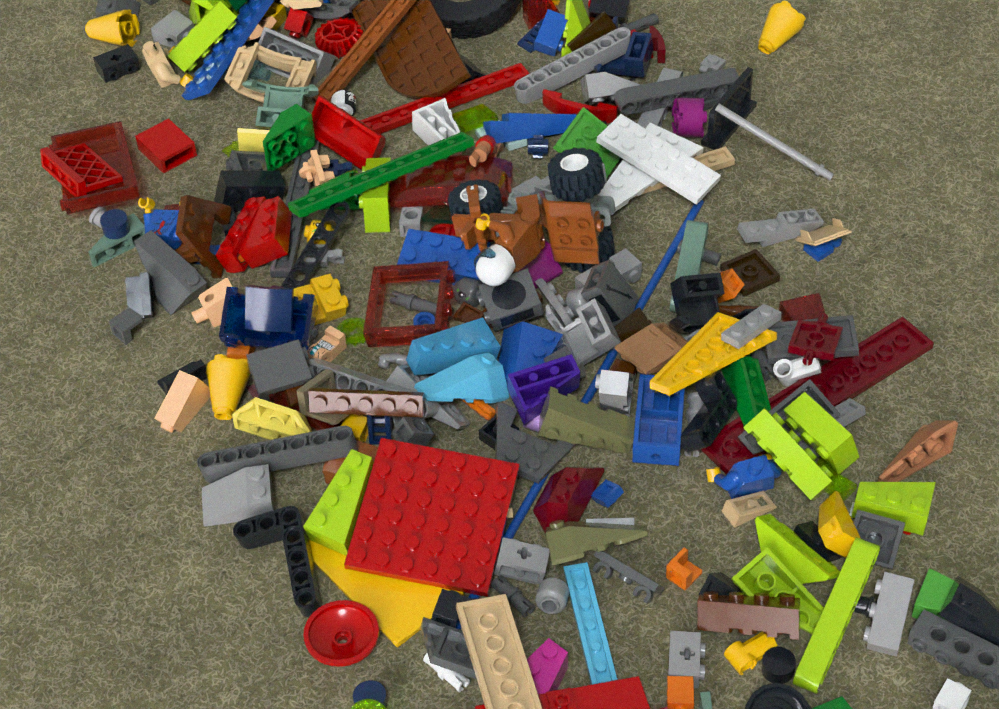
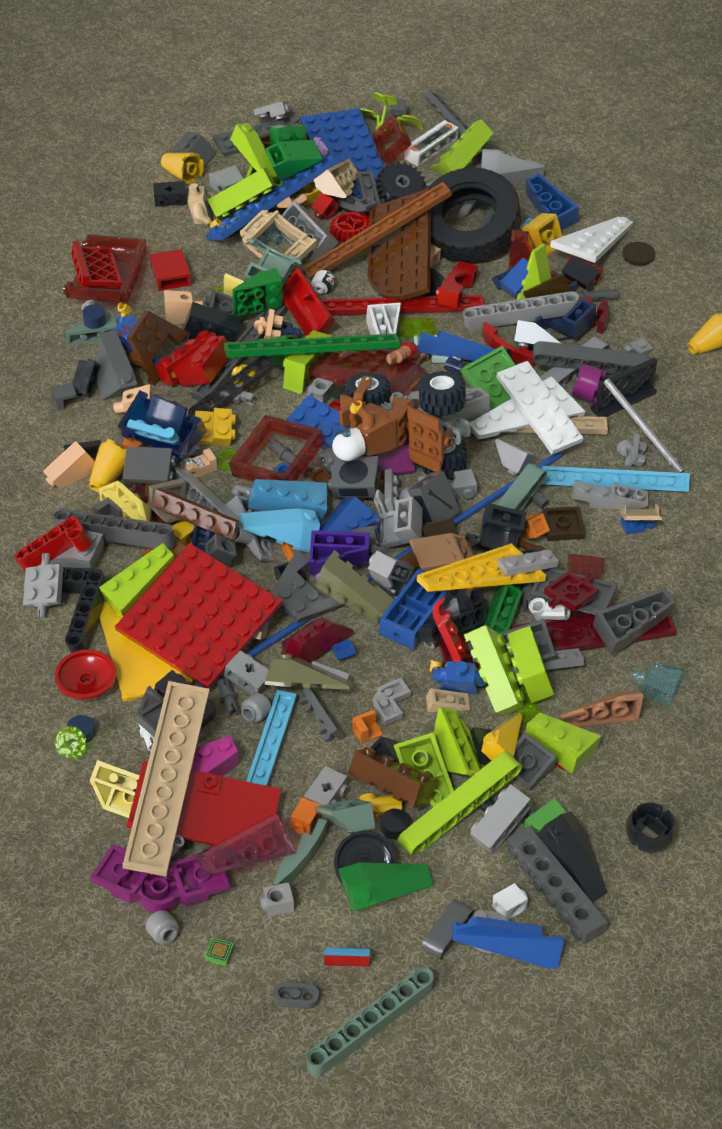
camera: 20 degrees right, 0 degrees up
(201, 180) = (177, 305): none -> light nougat torso
(218, 496) = (54, 542): none -> red beam
(232, 549) = (43, 585): none -> light grey plate
(254, 433) = (108, 507): none -> dark grey panel
(264, 328) = (154, 432): none -> medium azure plate
(489, 60) = (452, 288): none -> red arch
(660, 221) = (514, 457): none -> light grey slope
(684, 530) = (385, 700): none -> light grey plate
(723, 431) = (449, 632): none -> red plate
(733, 674) = (349, 814): none -> sand green slope
(769, 207) = (606, 477): none -> medium azure plate
(773, 173) = (632, 451): none -> light grey hips
(886, 349) = (632, 618): none -> dark grey wedge
(951, 402) = (659, 682): none -> clear light blue torso

